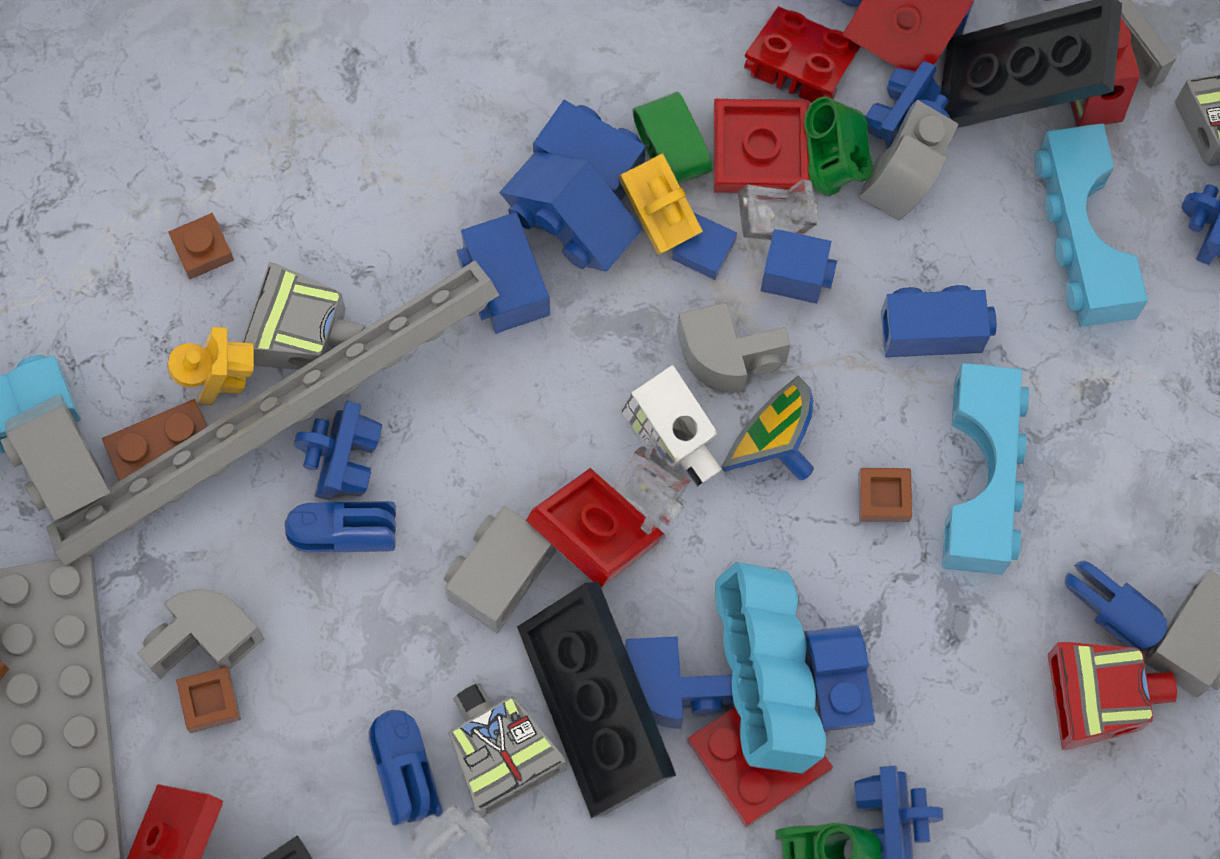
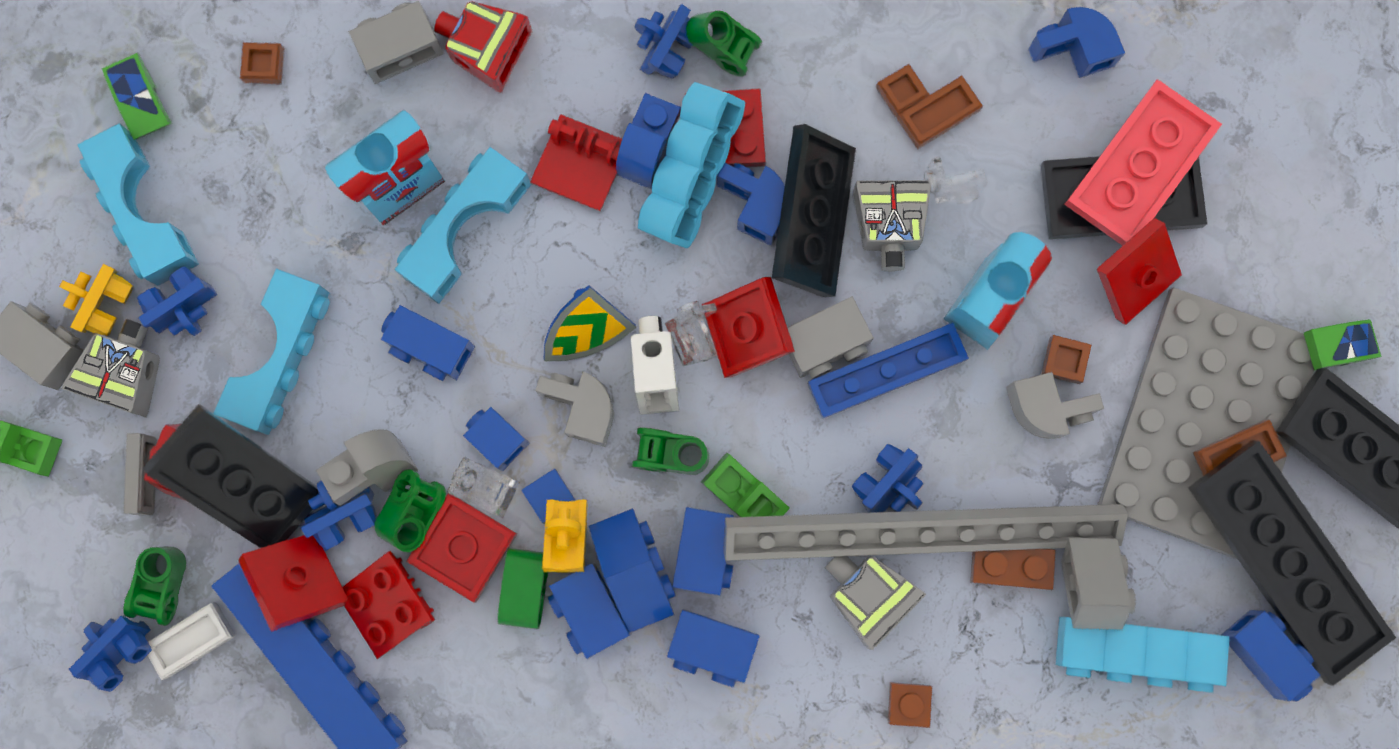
camera: 145 degrees left, 10 degrees up
(217, 364) = (953, 592): yellow hips -> none
(330, 704) = (999, 288): none -> medium azure piece
(342, 527) = (927, 433): blue arm -> none
(403, 768) = (961, 242): blue arm -> none
(408, 574) = (887, 370): none -> blue plate
(441, 187) = (712, 647): none -> blue brick
(495, 360) = (742, 490): none -> bright green slope
(610, 349) = (667, 452): none -> green piece
(885, 495) = (539, 245): dark orange plate -> none
(904, 617) = (578, 162): none -> red hinge
(1105, 460) = (387, 168): none -> medium azure piece
(1127, 616) = (438, 85): blue arm -> none

